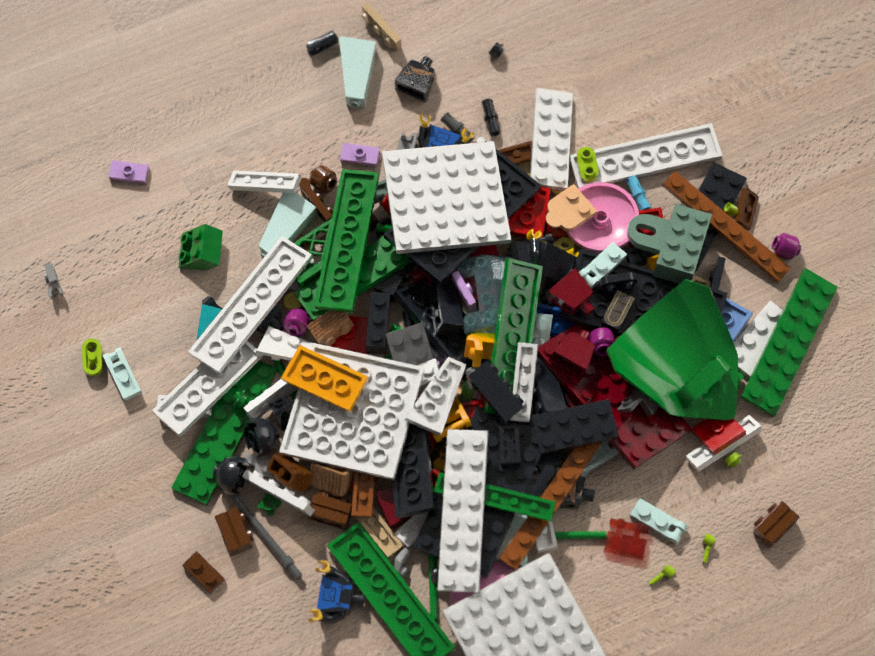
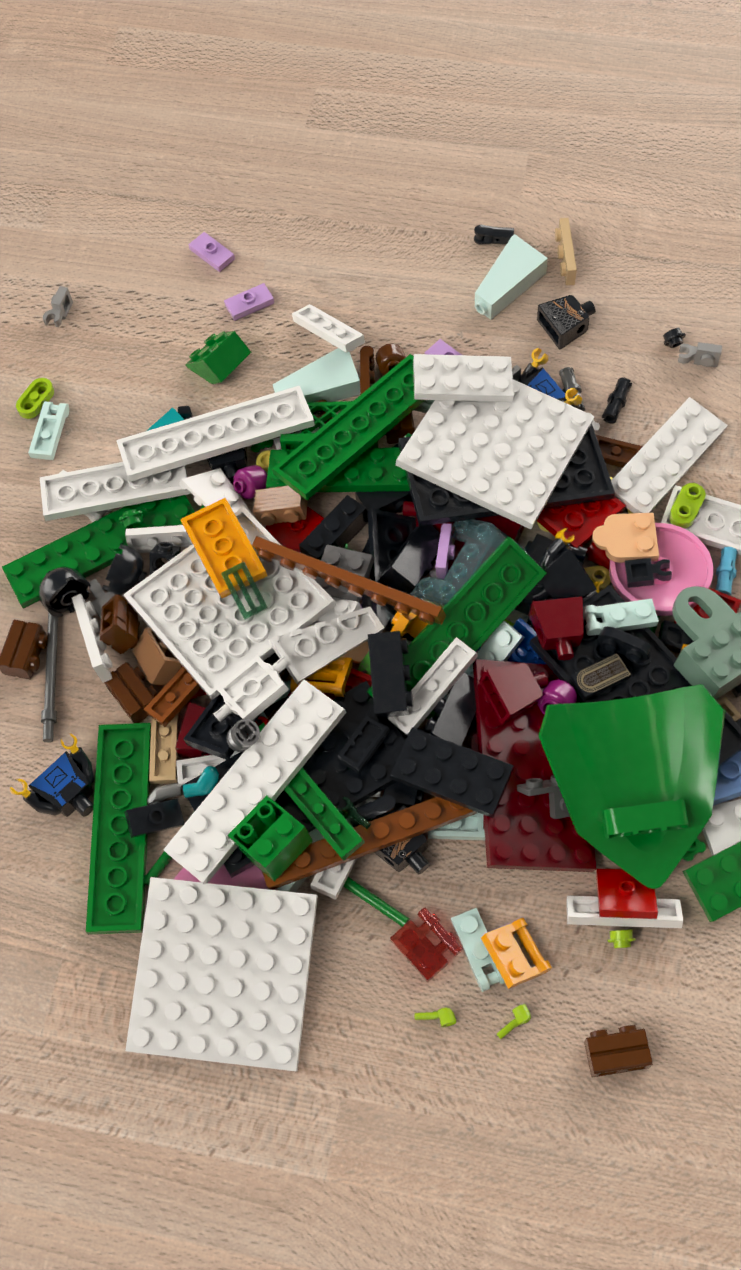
camera: 40 degrees right, 5 degrees down
(187, 194) = (249, 301): none -> lavender plate
(263, 504) = (74, 643): green plate -> none
(347, 396) = (254, 610): none -> clear green tile
(396, 167) = (463, 378): none -> white plate
(410, 576) = (154, 818): none -> black plate
(418, 456) = (252, 689): none -> white plate
(431, 531) = (204, 784): none -> teal arm
(433, 348) = (356, 584): none -> dark orange plate
(437, 488) = (238, 738): none -> flat silver wheel
(499, 537) = (270, 838): none -> green slope
(523, 51) = (703, 354): none -> light grey plate
(531, 491) = (350, 812): none -> clear green hand
(594, 228) = (642, 572): none -> black plate
(679, 512) = (510, 958): none -> light orange plate

